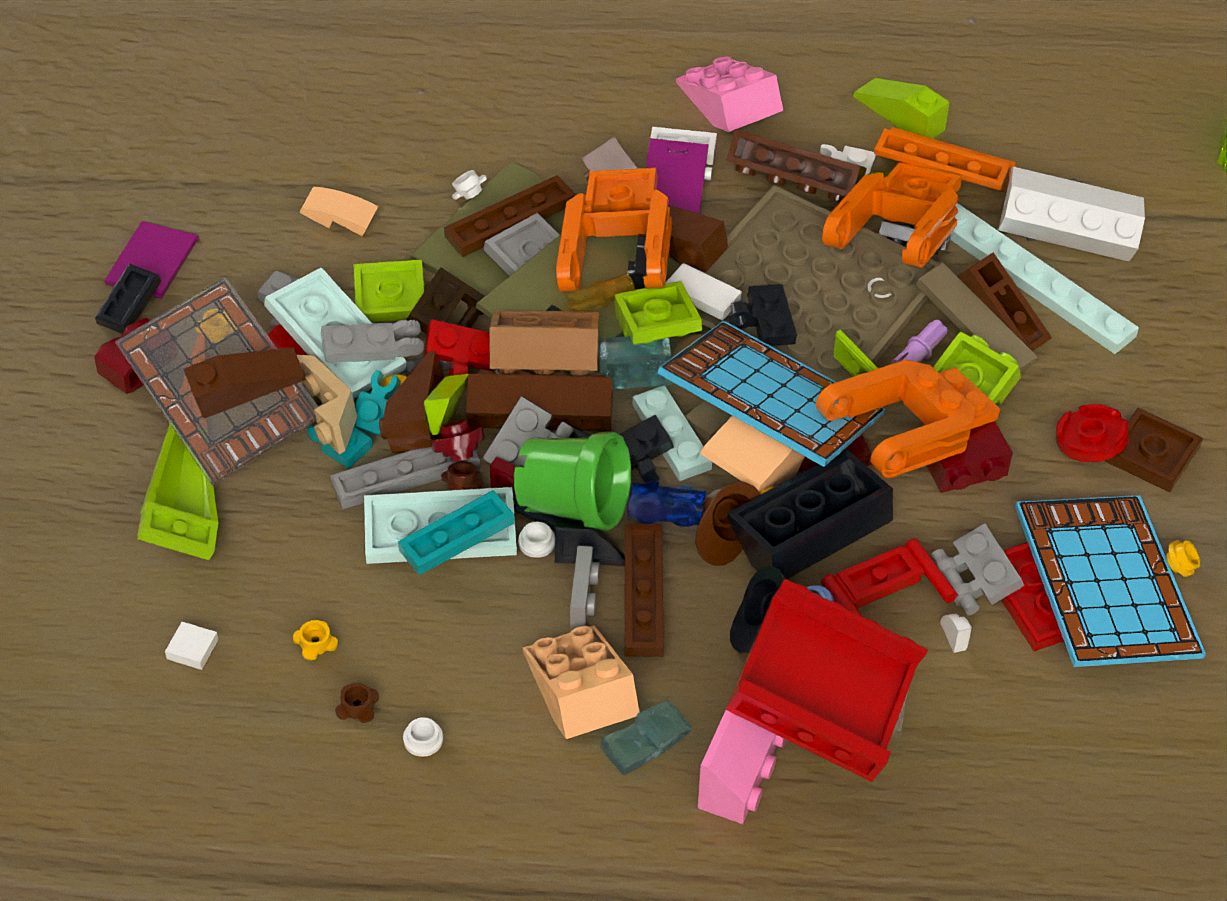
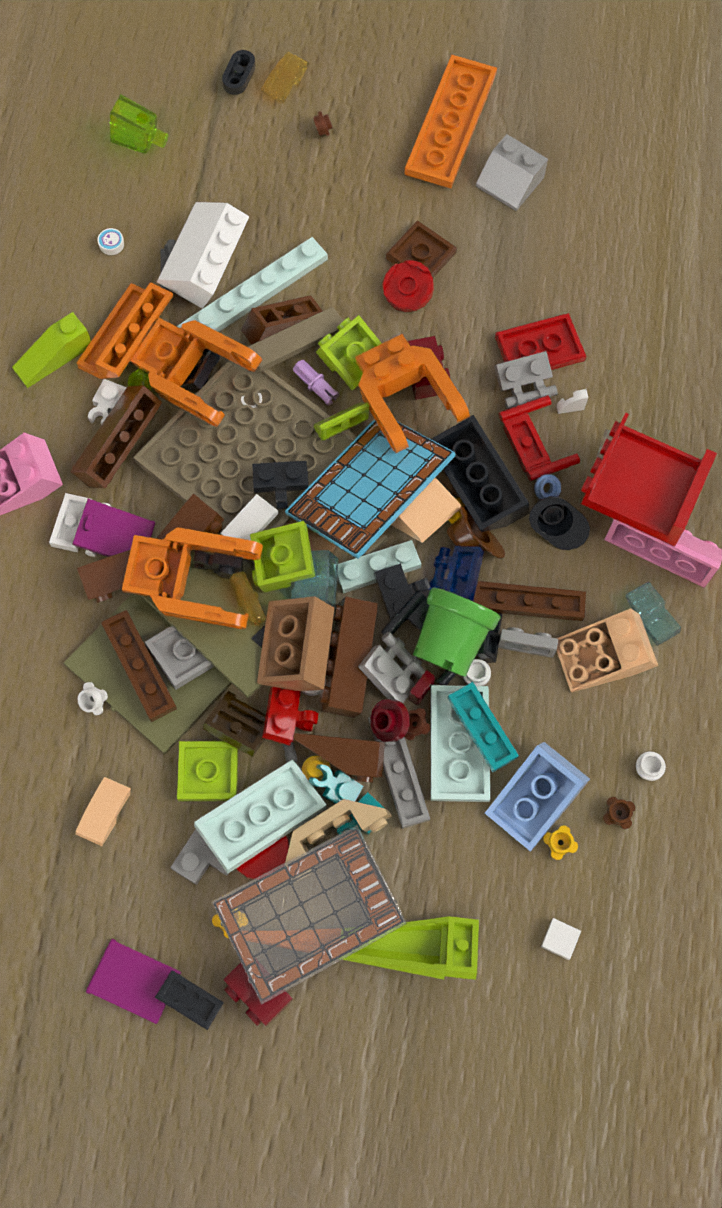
camera: 85 degrees left, 20 degrees up
(241, 377) = (325, 887): reddish brown slope -> none
(371, 341) = (278, 787): light grey hinge -> none
(378, 608) = (537, 795): none -> light blue slope
(444, 401) = (349, 725): lime slope -> none
(1072, 141) = (111, 241): none -> white tile
(1108, 581) = (535, 303): piece -> none
(1183, 557) = (521, 254): yellow plate -> none

